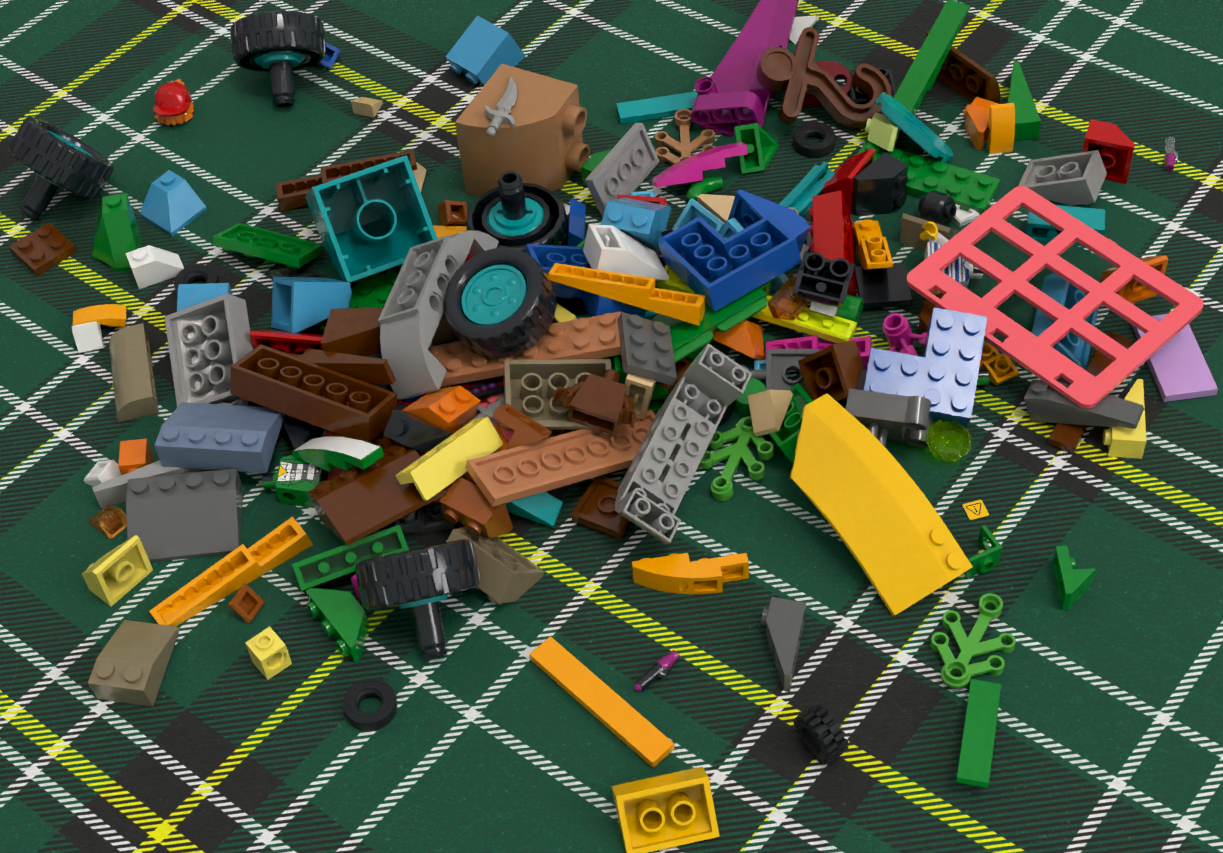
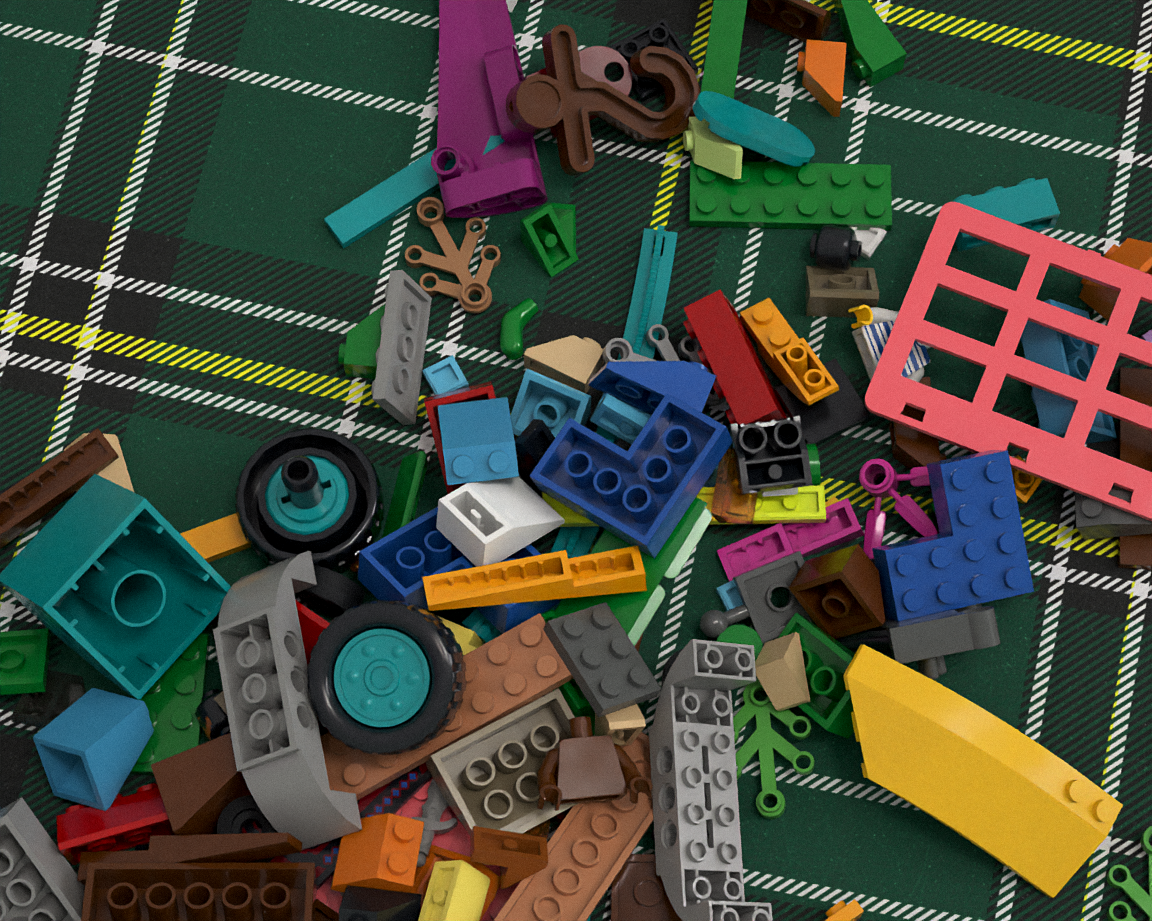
camera: 30 degrees left, 20 degrees up
(452, 213) = (199, 503): dark orange slope -> none
(482, 51) = (92, 201): dark azure slope -> none
(503, 109) = (230, 352): light grey piece -> none
(542, 145) = (248, 354): medium nougat brick -> none
(576, 223) = (376, 447): blue slope -> none
(692, 167) = (492, 304): dark pink slope -> none
(745, 338) = (699, 571): orange slope -> none
(814, 150) = (615, 201): black tyre -> none
(844, 176) = (705, 248): red slope -> none
(880, 187) = (756, 245): black slope -> none
(948, 440) = (1016, 621): clear neon green hair -> none
(975, 509) = (1076, 701): yellow sticker -> none
(989, 558) = (1128, 760): green bracket -> none
(1002, 128) = (863, 84): light orange slope -> none
(1066, 178) = (968, 135): light grey slope -> none
(1114, 148) = (1009, 78): red slope -> none
(1171, 155) = (1079, 38): piece -> none

